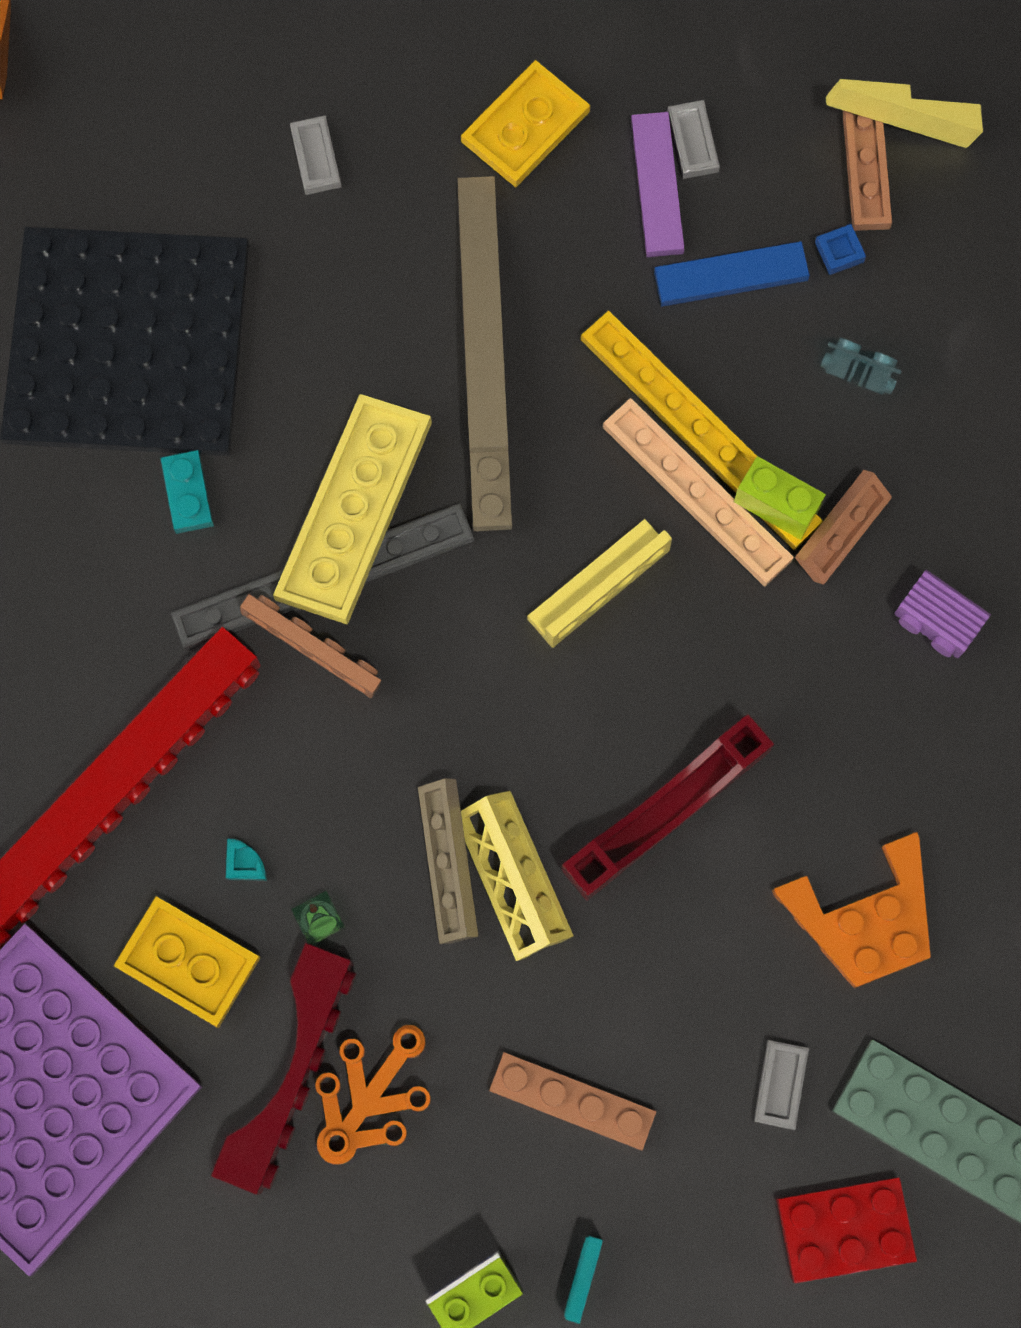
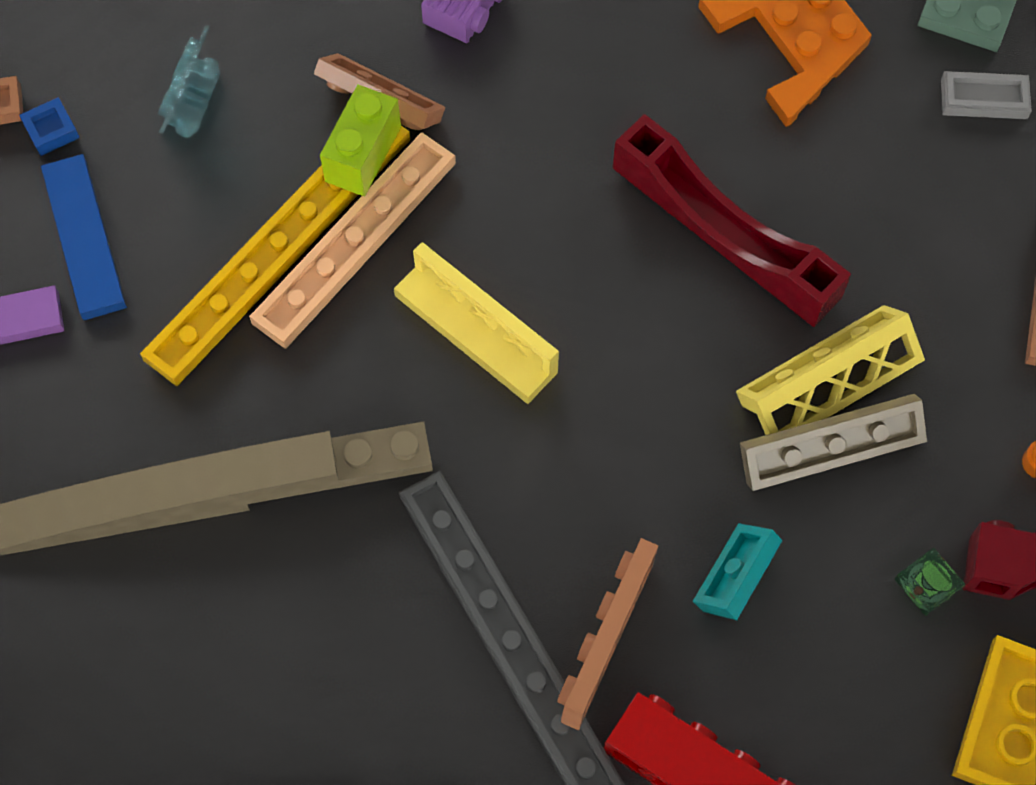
camera: 100 degrees left, 10 degrees down
(243, 862) = (884, 679): teal tile -> none
(348, 759) = (737, 571): none -> teal plate
(353, 509) = (425, 609): light yellow plate -> none

